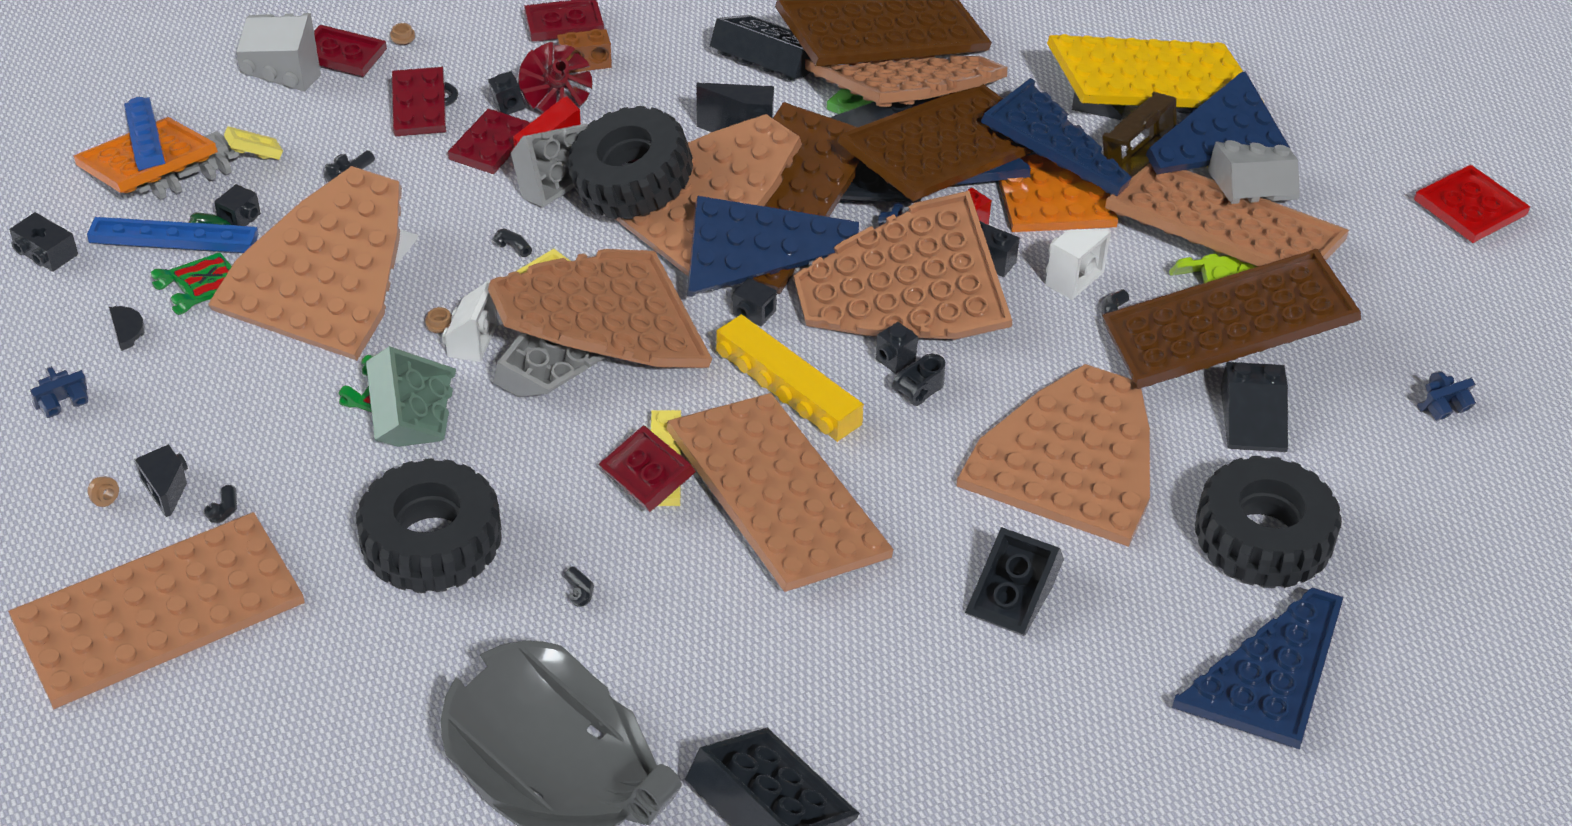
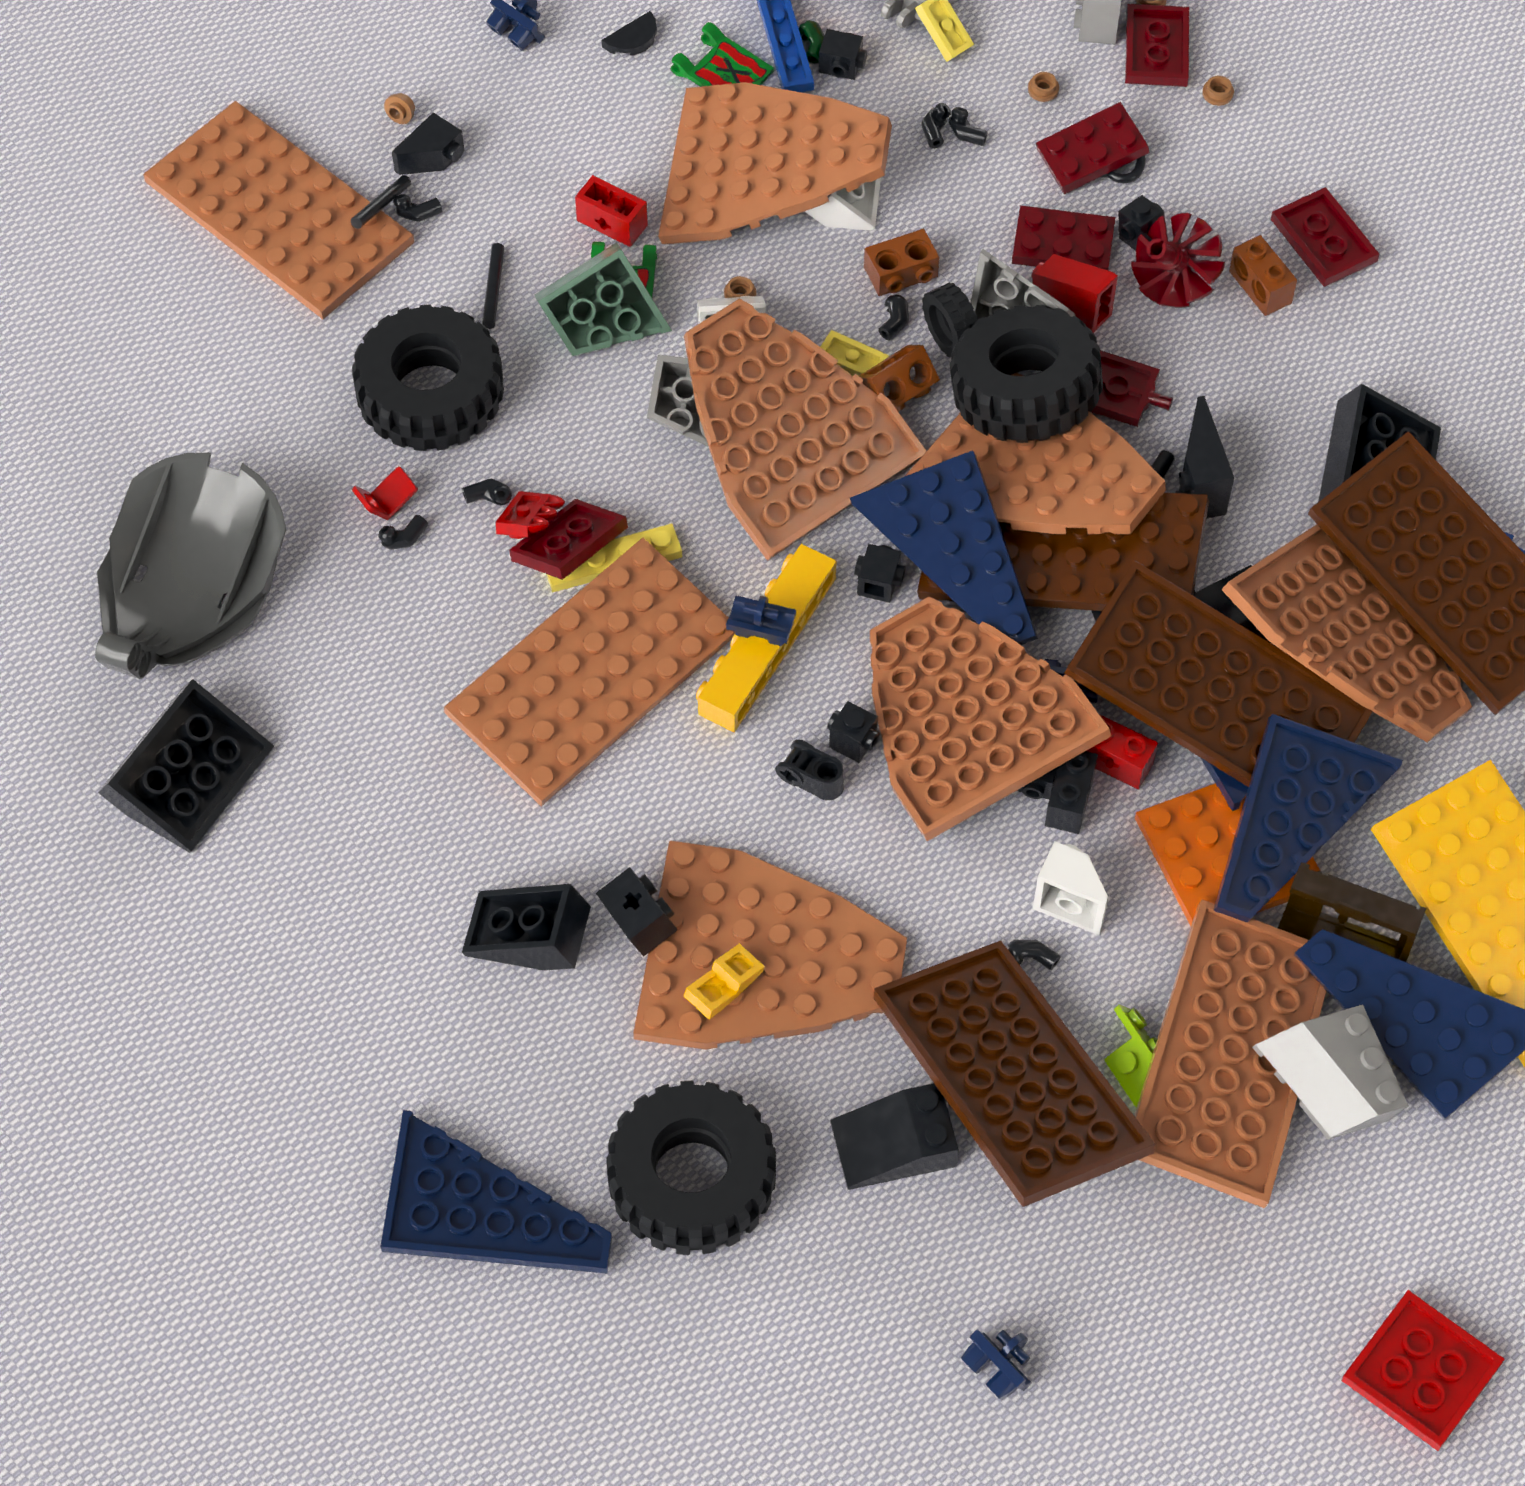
camera: 75 degrees right, 15 degrees up
(208, 521) = (380, 202): none -> black bar
(316, 370) = (611, 211): none -> red brick
(335, 471) = (493, 285): none -> black bar
(341, 114) = (1043, 87): none -> medium nougat plate
(467, 222) = (901, 262): none -> dark orange brick
(534, 583) = (388, 495): none -> red bracket
(546, 183) = (948, 315): none -> black tyre
(562, 518) = (489, 490): none -> black arm
(578, 237) = (896, 372): none -> dark orange brick
(607, 491) = (528, 514): none -> red plate
(790, 358) = (761, 620): none -> dark blue hips
(1017, 515) = (637, 911): none -> black brick
(1103, 467) = (725, 981): none -> yellow slope

